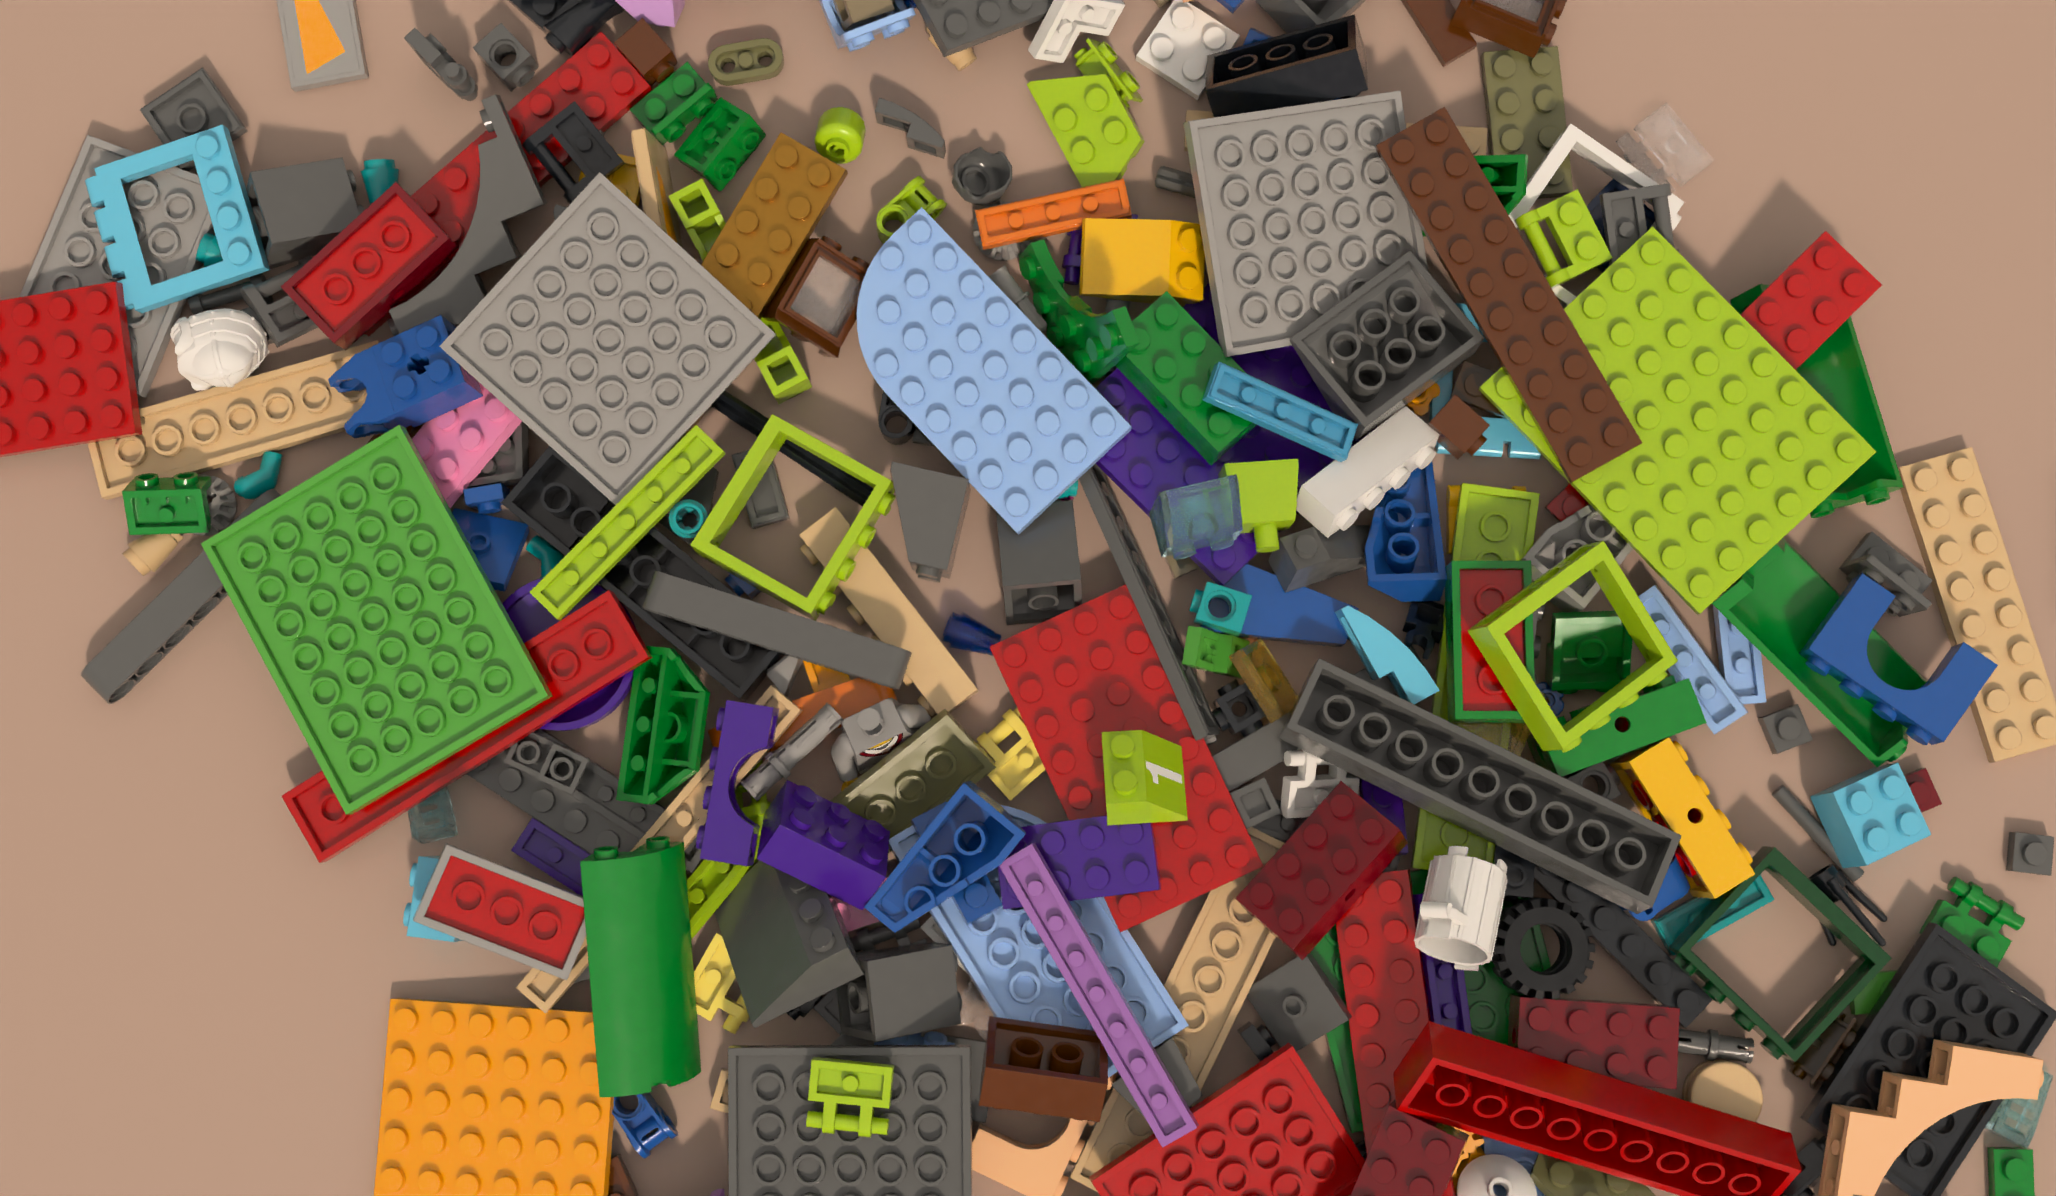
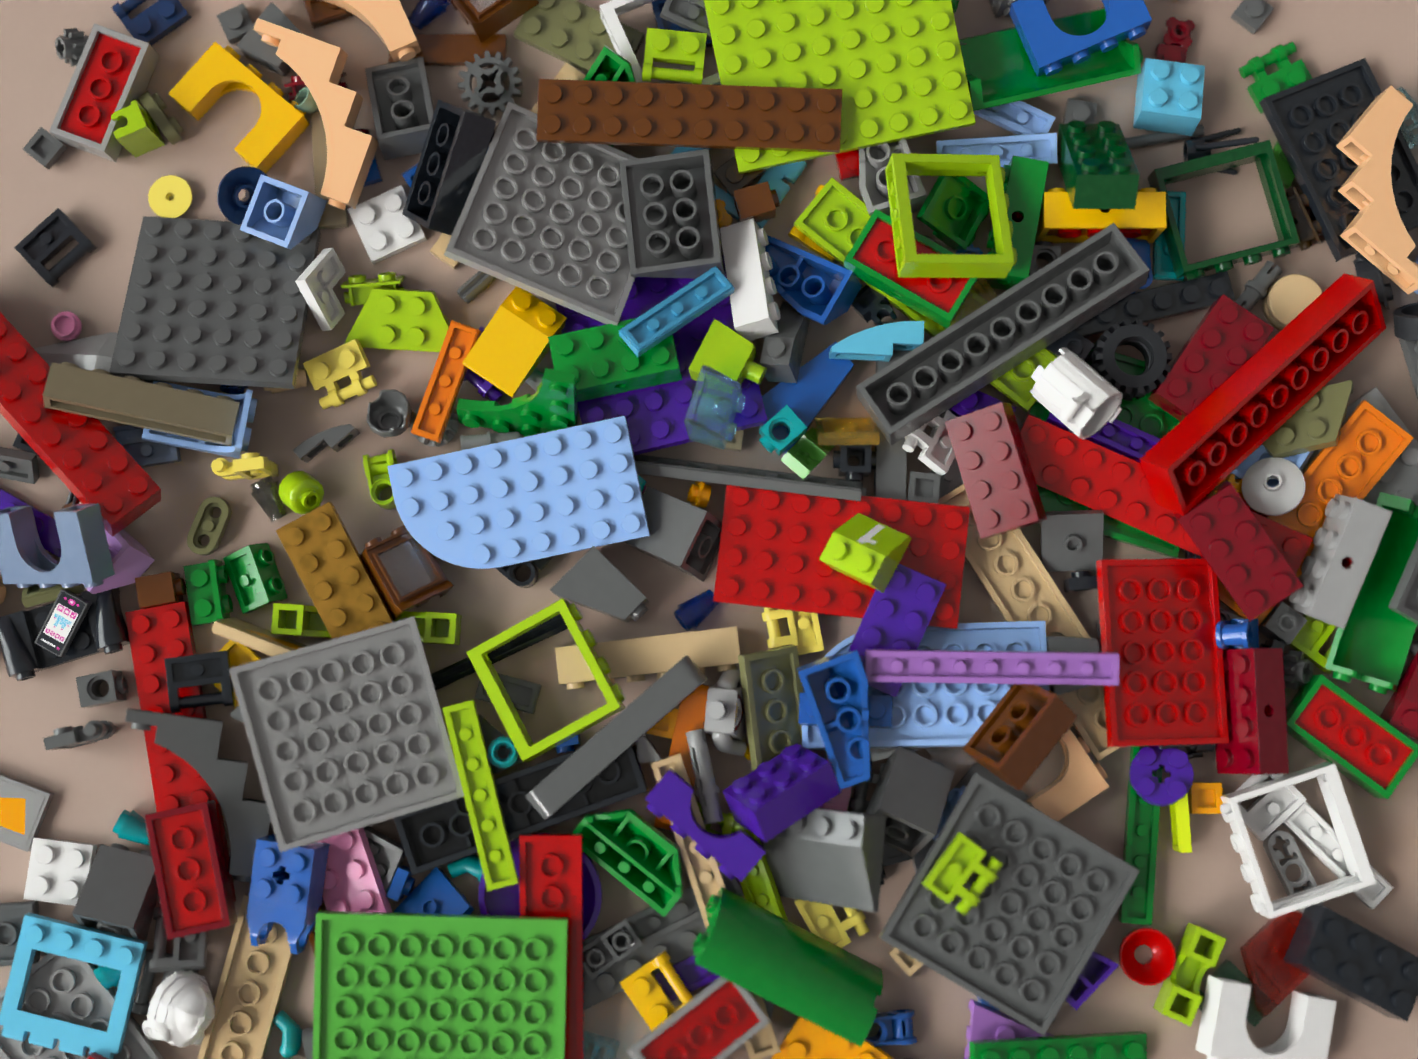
camera: 55 degrees left, 0 degrees up
(291, 130) = (58, 870): none -> white plate
(524, 833) = (648, 994): none -> yellow plate
(813, 103) = (267, 496): none -> clear smoke cone
(834, 63) = (250, 467): none -> light yellow plate
(1000, 88) = (336, 365): none -> light yellow plate
(1097, 562) = (699, 494): none -> light orange plate
(1425, 61) = (496, 74): none -> dark grey gear
(1736, 779) = (1097, 166): none -> dark green brick
(1941, 781) = (1173, 38): none -> dark red plate

